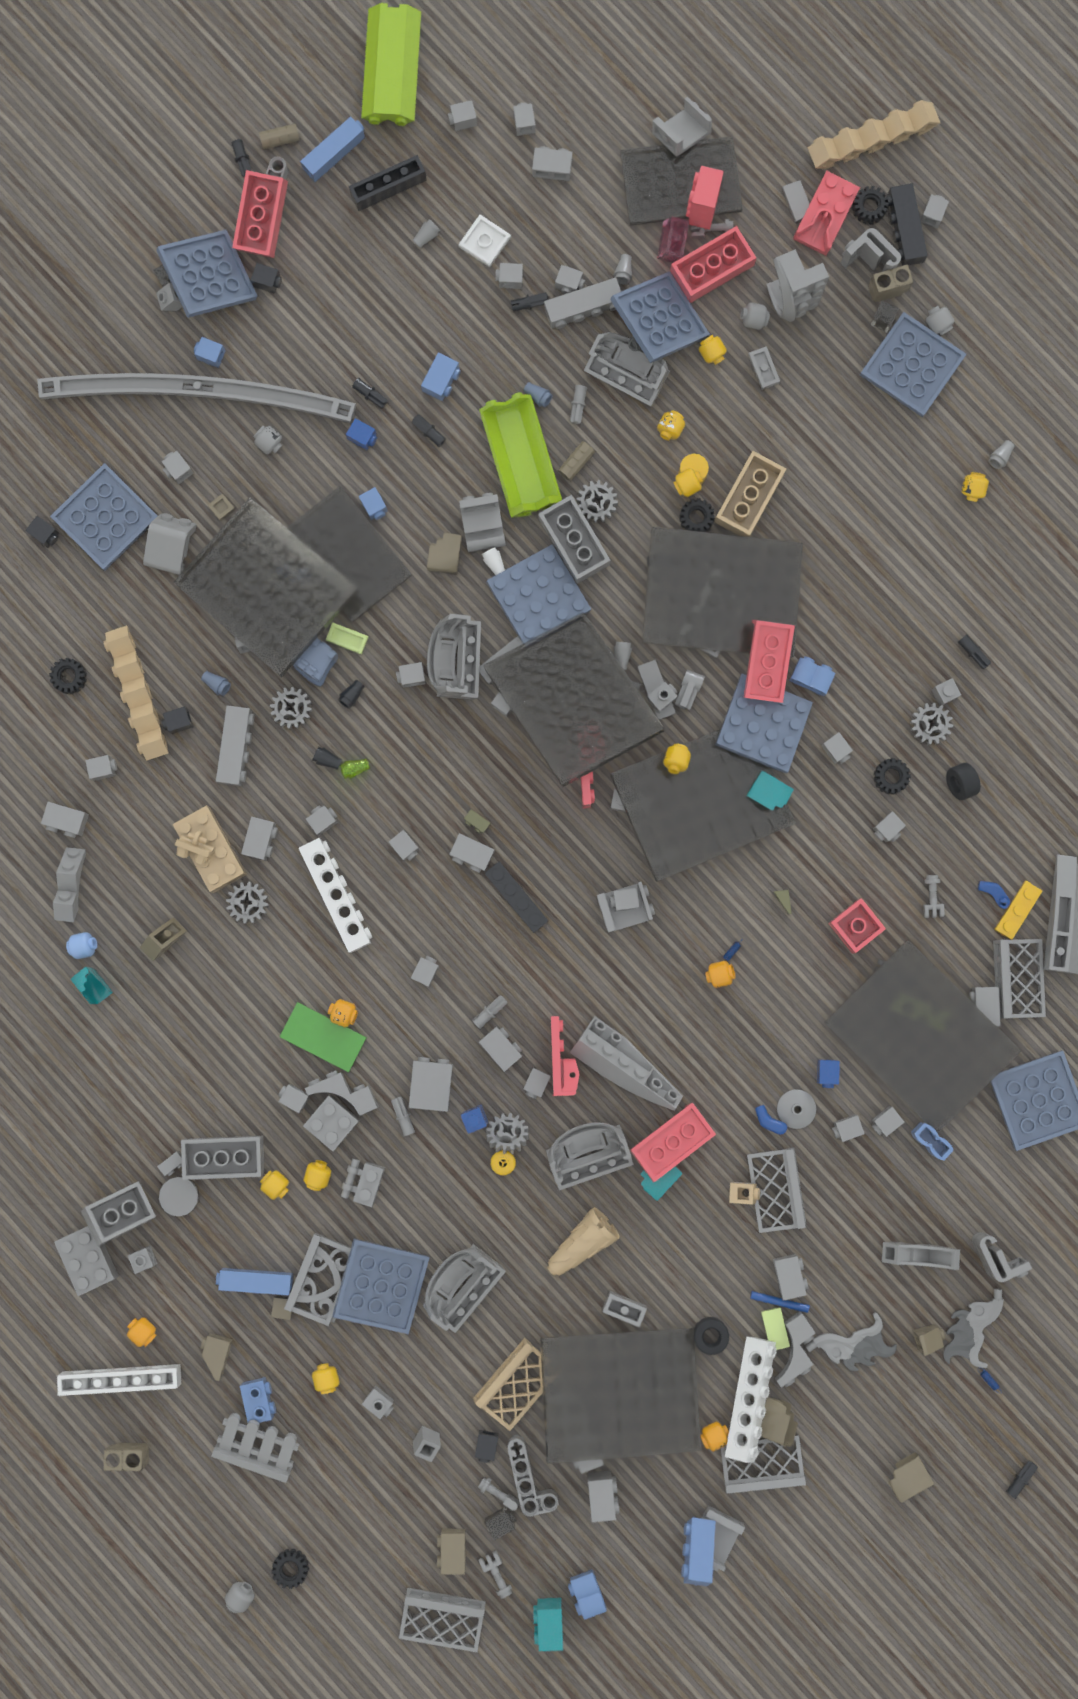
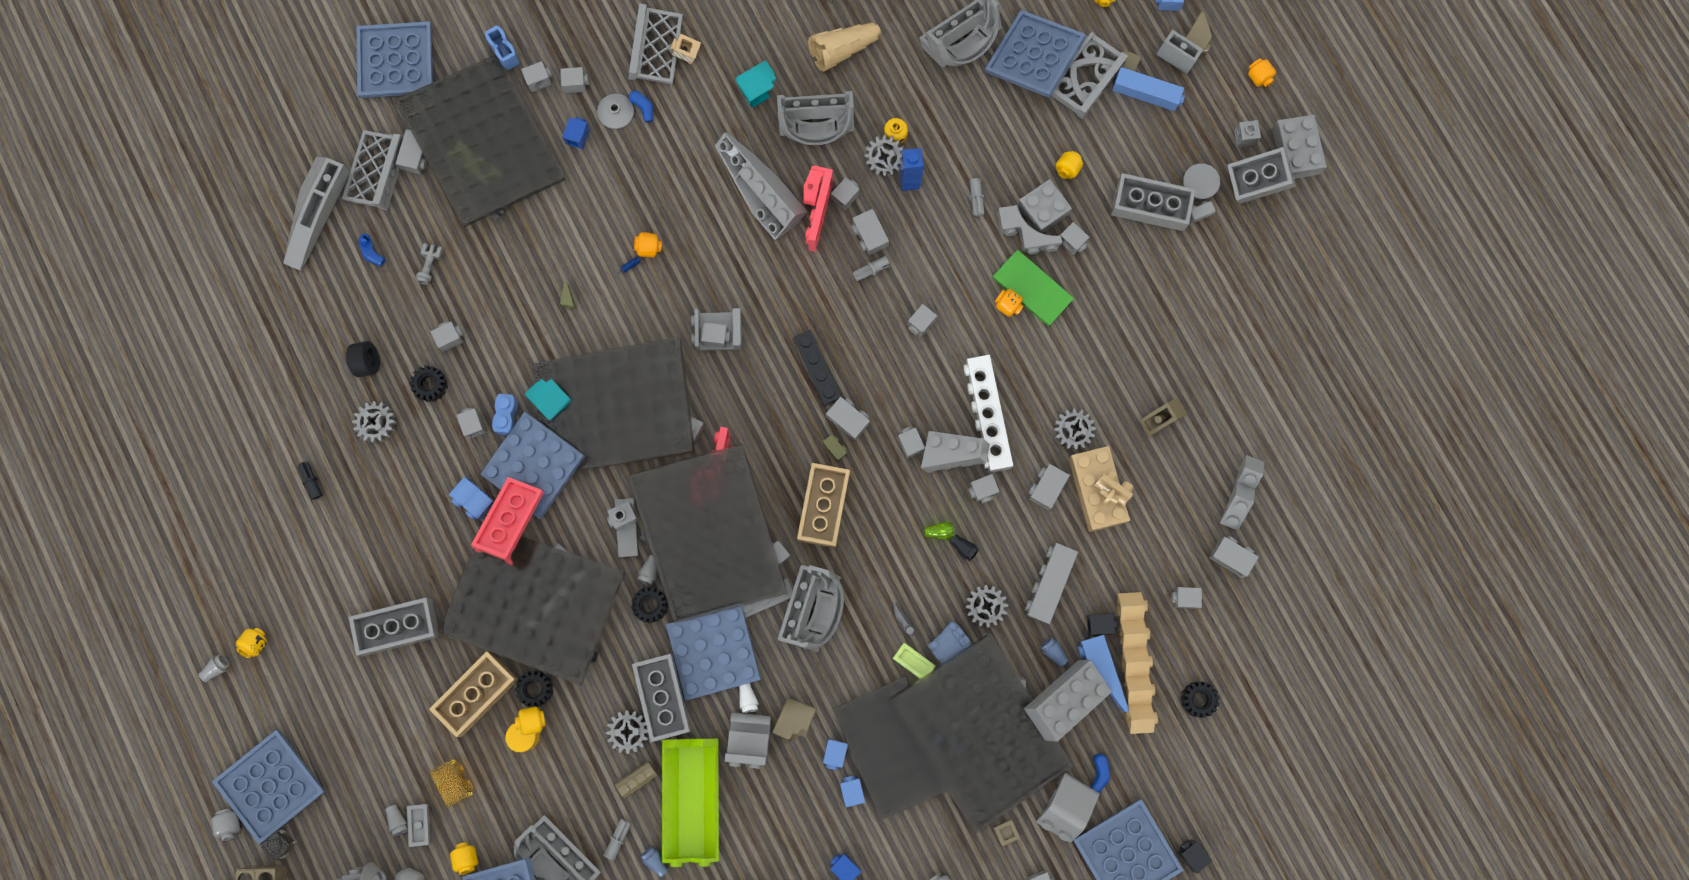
camera: 170 degrees left, 5 degrees down
(81, 945) = (1243, 431): light blue head -> none
(91, 985) = (1242, 389): teal piece -> none
(119, 1379) = (1291, 36): white brick -> none
(144, 584) = (1103, 772): none -> blue arm
(173, 688) = (1098, 652): none -> medium blue slope
(192, 637) = (1067, 700): none -> light grey brick
(231, 1330) = (1179, 51): none -> light grey brick
(274, 1185) = (1110, 167): yellow head -> none
(351, 694) = (924, 603): black cone -> none
(362, 846) = (952, 451): none -> light grey wedge
(367, 674) = (903, 620): none -> flat silver bar
(368, 1184) = (1023, 146): light grey brick -> none
(398, 533) = (835, 754): none -> medium blue brick
(411, 675) = (860, 606): light grey brick -> none
(428, 430) = (776, 855): black axle -> none
(430, 1084) = (943, 217): light grey panel -> none
(471, 760) = (823, 505): none -> tan brick
(620, 615) = (638, 600): none -> black tyre
(671, 425) = (530, 789): yellow head -> none
(672, 1142) = (735, 105): coral plate -> none
(677, 758) = (625, 447): yellow head -> none
(690, 686) = (591, 522): light grey piece -> none
(745, 412) = (451, 783): none -> clear yellow brick
(786, 365) = (396, 822): none -> light grey cone
(807, 769) = (506, 411): none -> medium blue brick
(845, 536) = (394, 626): none -> light grey brick
(857, 926) = (506, 253): coral brick -> none
(946, 692) = (350, 447): light grey brick -> none
(1018, 910) = (351, 232): yellow plate -> none

